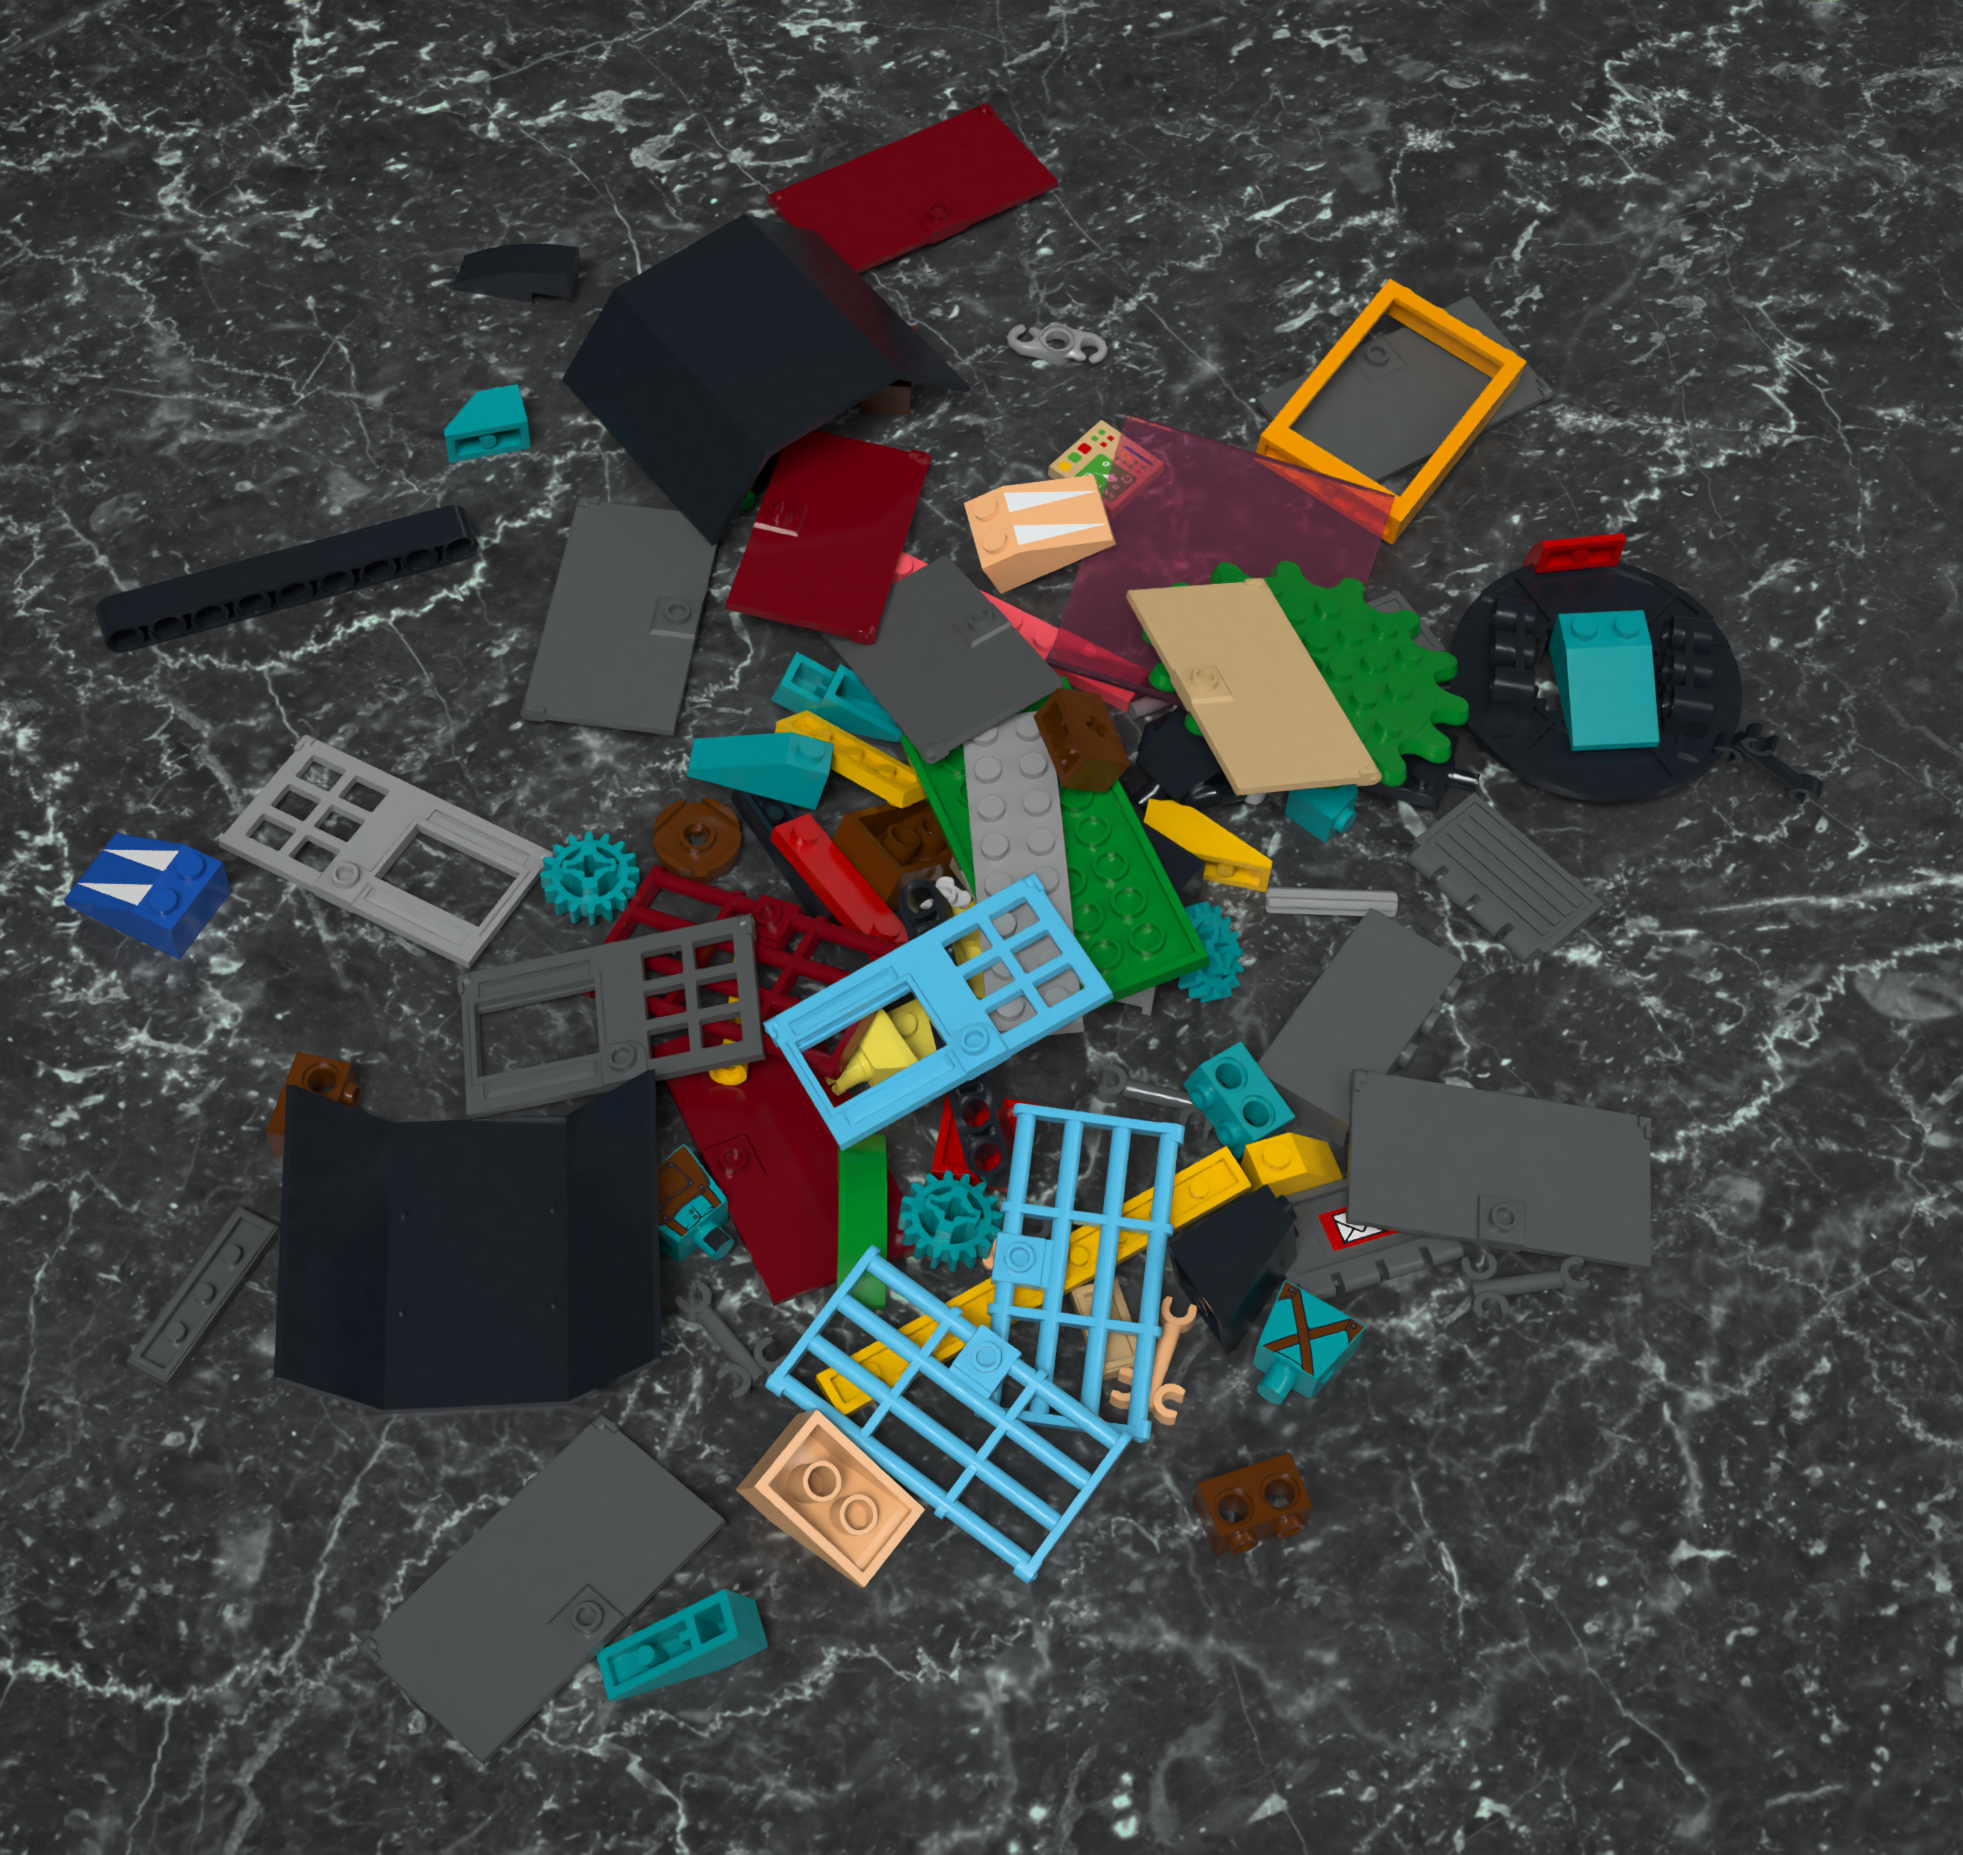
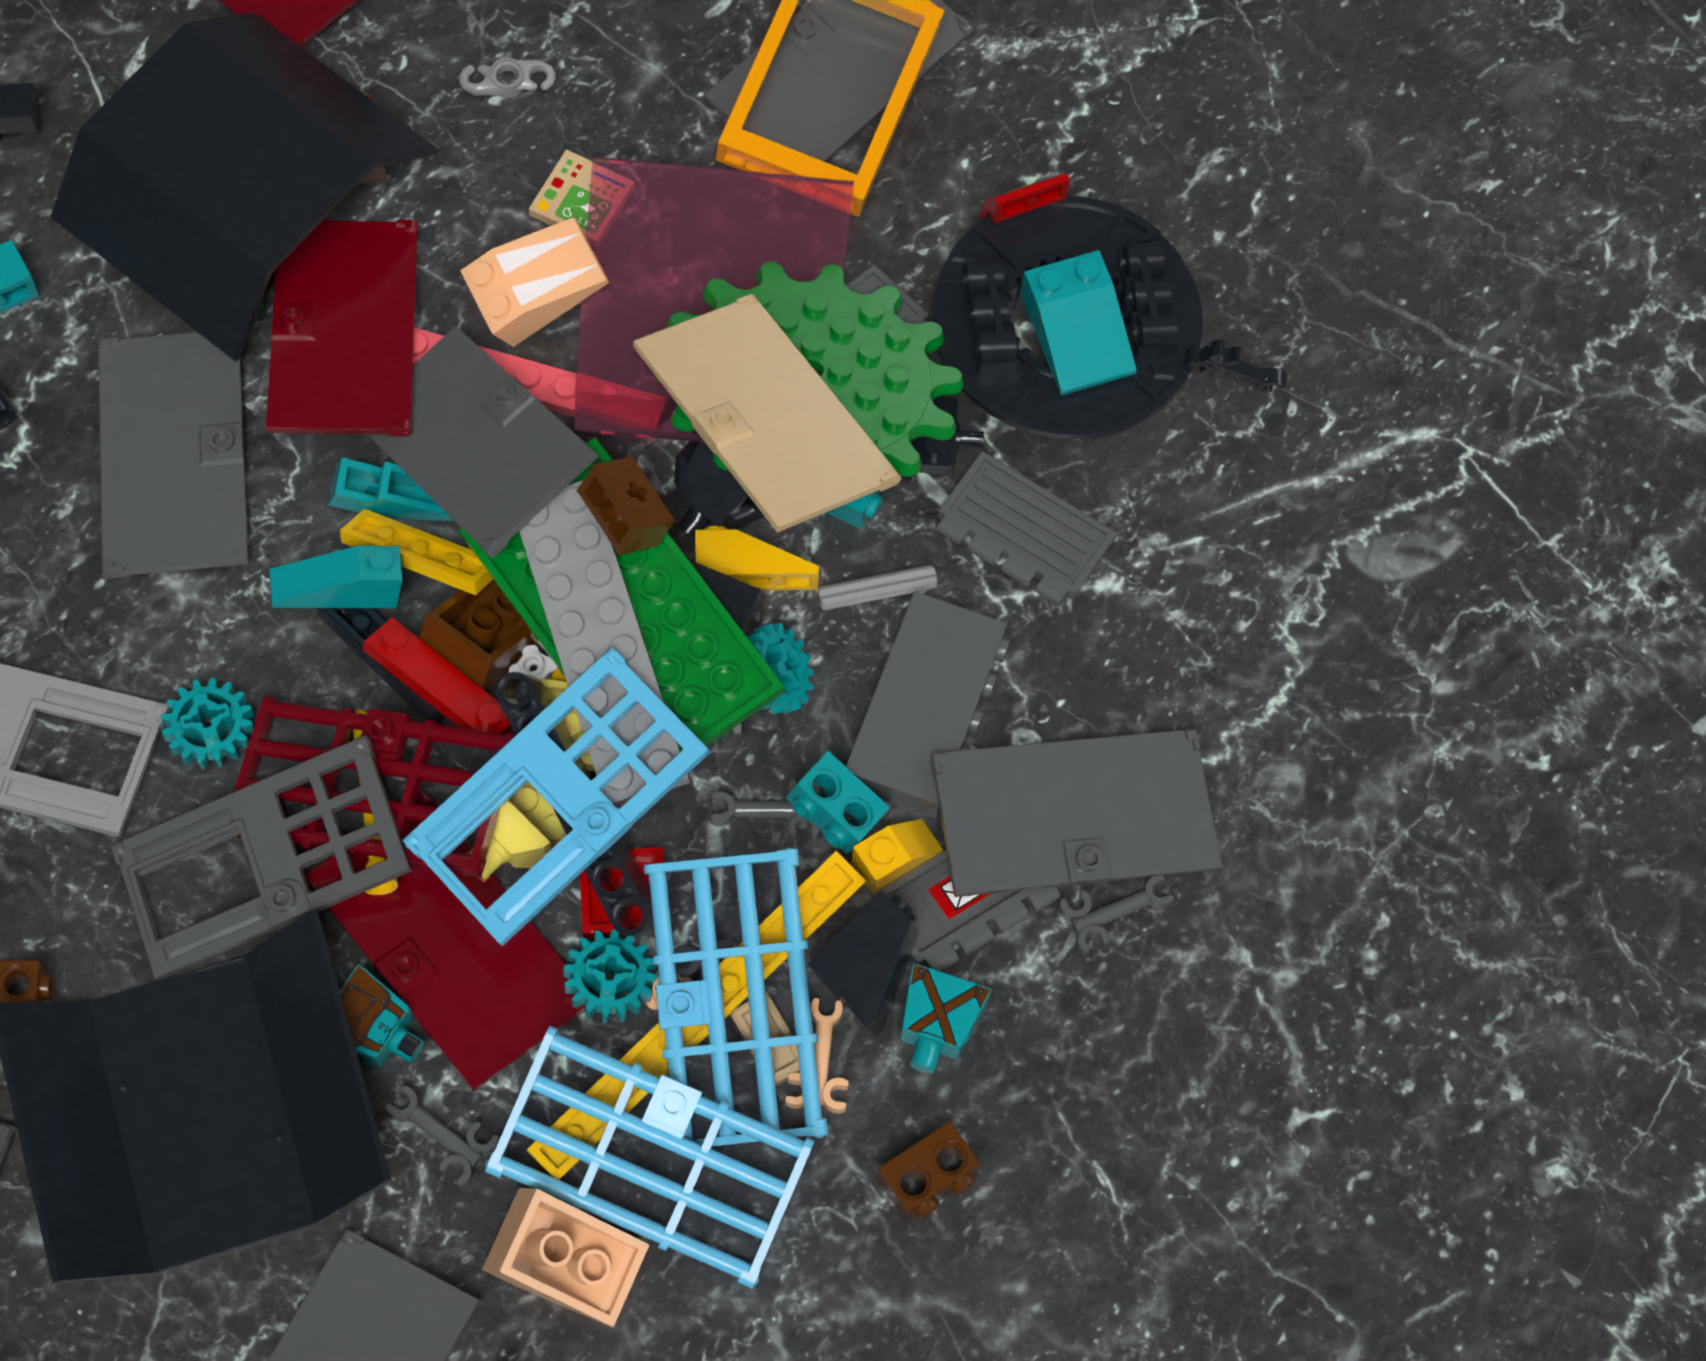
camera: 15 degrees left, 10 degrees up
(702, 861) = (305, 682): reddish brown plate -> none
(862, 1214) = (533, 996): green slope -> none

